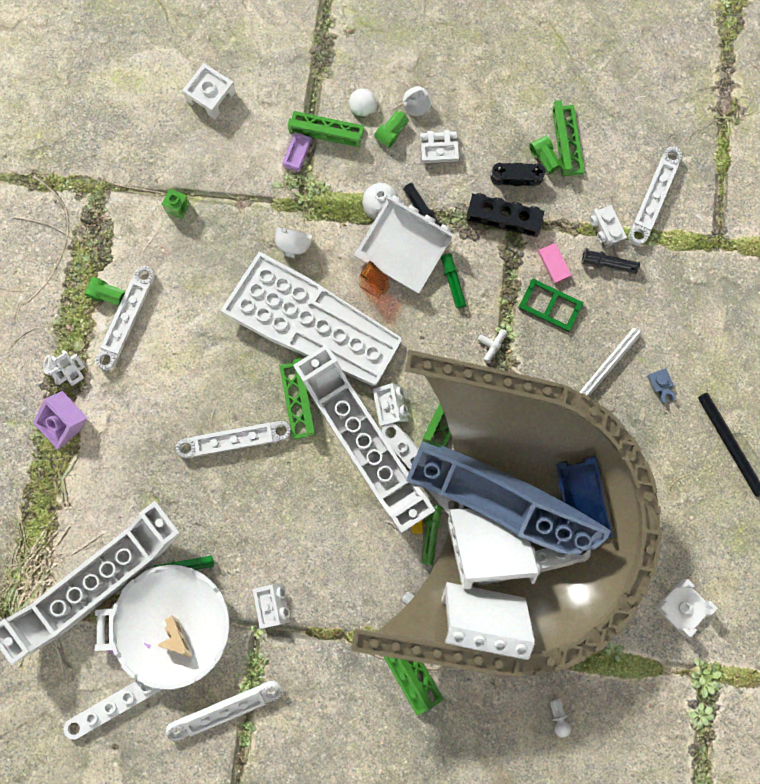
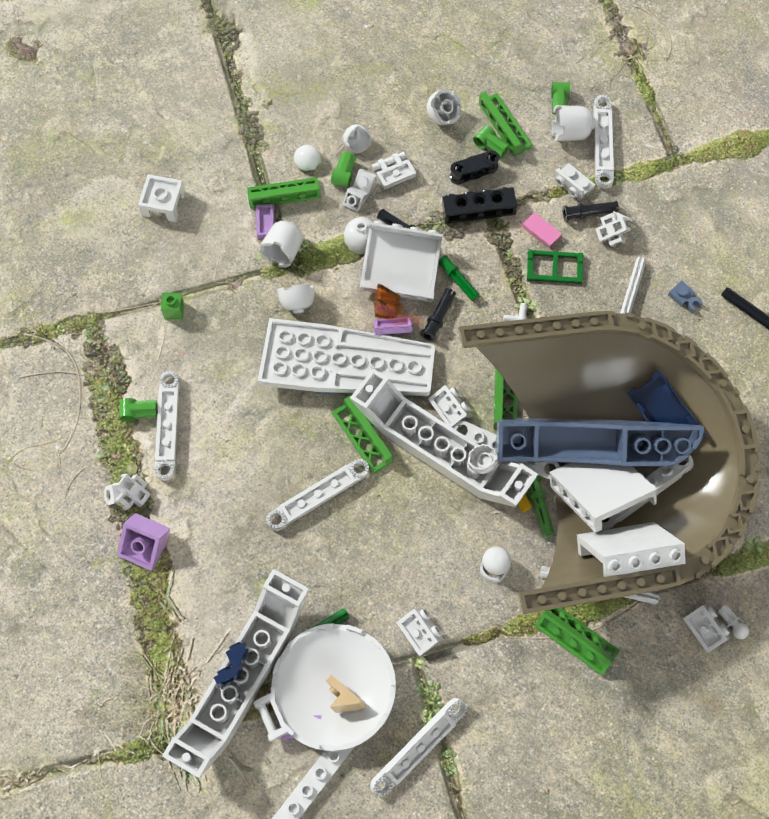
camera: 20 degrees left, 10 degrees down
(90, 570) = (237, 657): none -> dark blue slope
(301, 181) = (281, 243): none -> white cylinder
(365, 572) = (497, 562): none -> white helmet
(370, 304) = (392, 325): none -> lavender tile
(392, 473) = (483, 459): none -> white hair
(396, 157) = (359, 192): none -> white slope
(412, 315) = (435, 321): none -> black pin
(514, 101) = (444, 107): none -> white cylinder
(533, 713) = (707, 627): none -> white bracket
(631, 283) = (609, 230): none -> white piece
(632, 166) = (572, 123): none -> white cylinder
(634, 131) = (560, 94): none -> bright green piece

